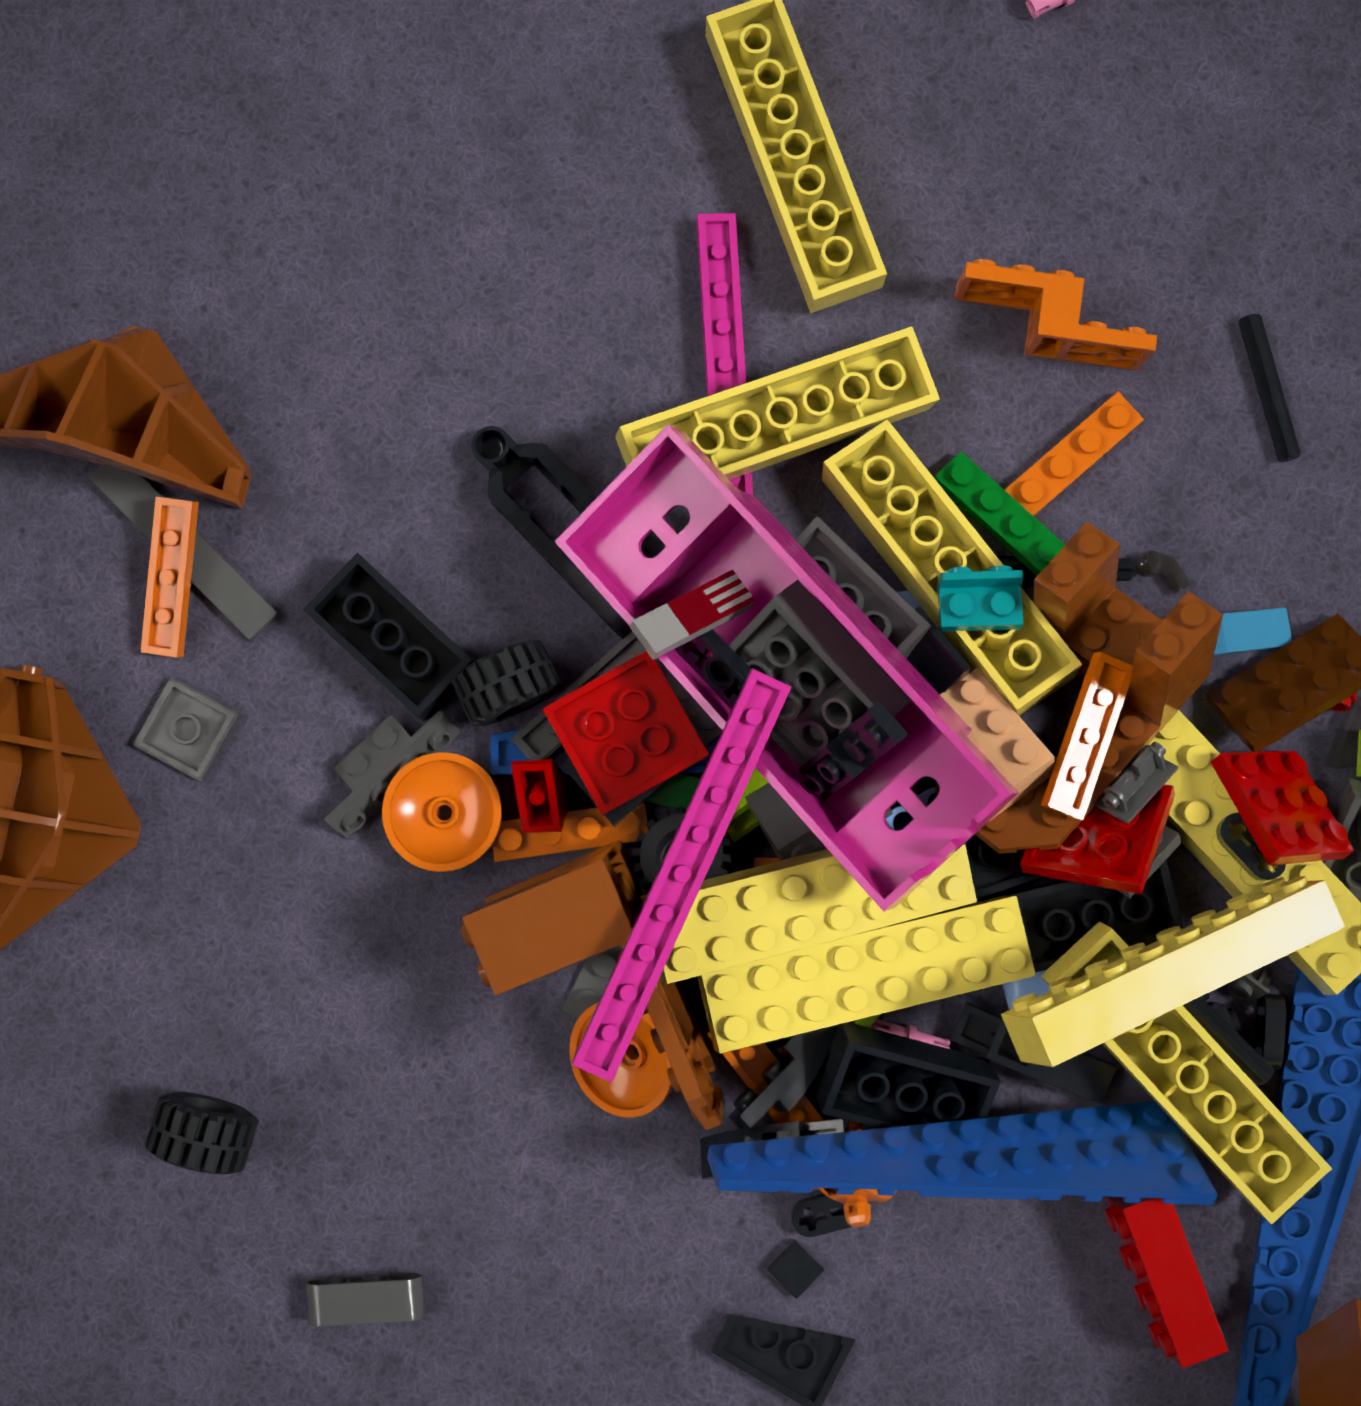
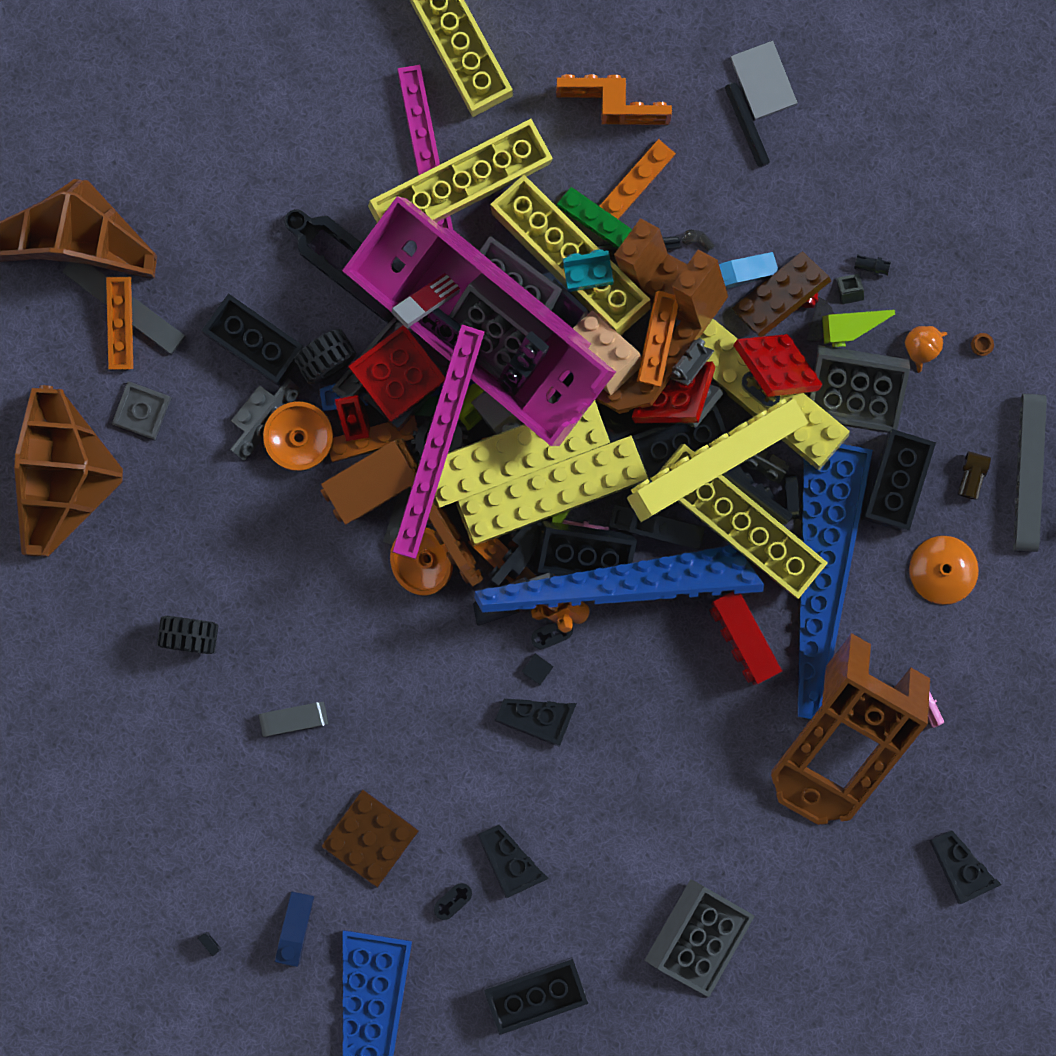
camera: 10 degrees left, 0 degrees up
(1306, 318) = (763, 80): none -> light grey tile

